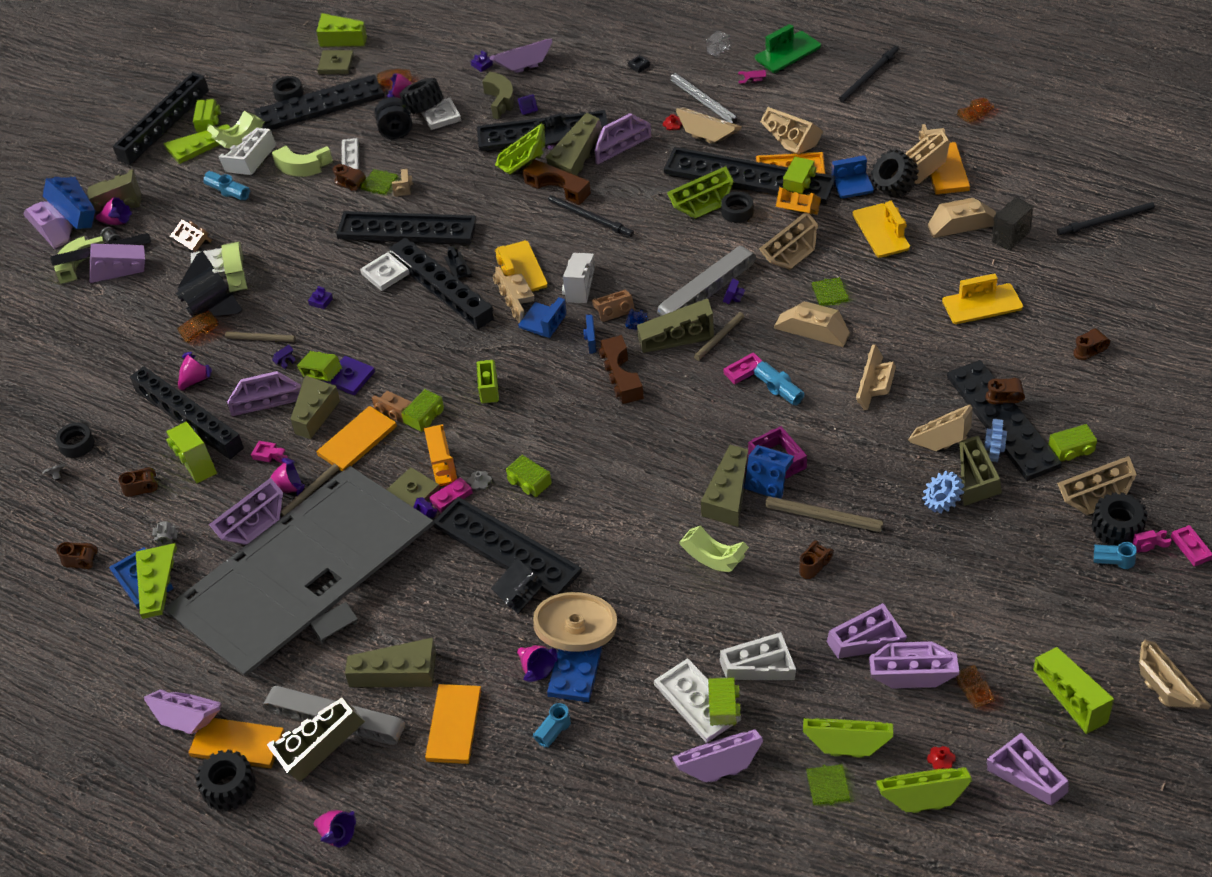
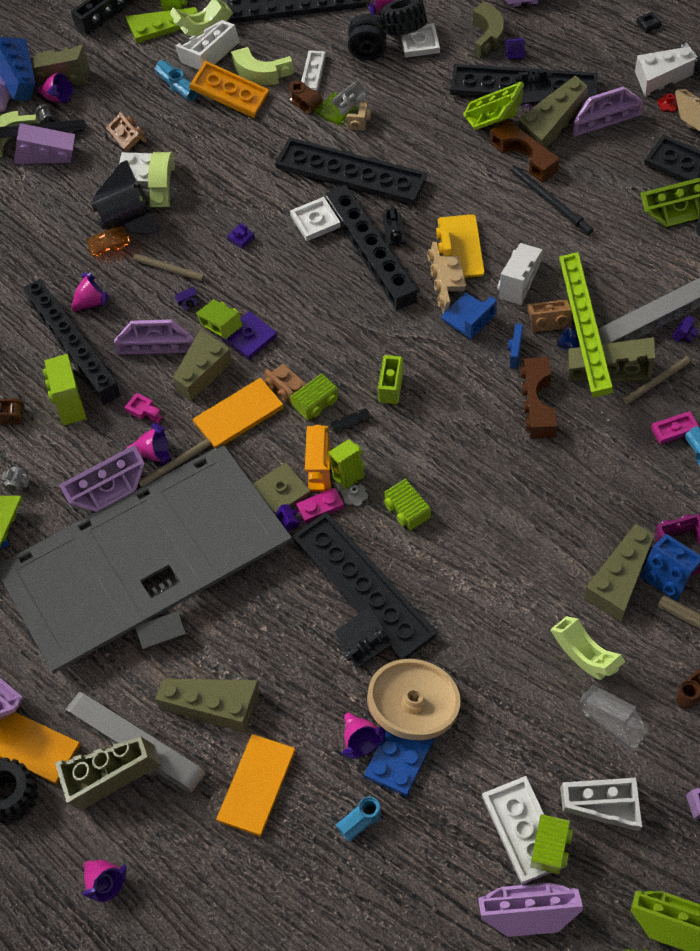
camera: 15 degrees right, 10 degrees up
(277, 183) = (229, 89): none -> light orange tile
(390, 168) = (349, 97): none -> light grey hips
(459, 422) = (350, 420): none -> black axle
(466, 453) = (347, 463): none -> lime brick
(647, 302) = (586, 326): none -> lime plate
(661, 95) = (664, 67): none -> white wedge
(751, 595) = (614, 716): none -> clear slope

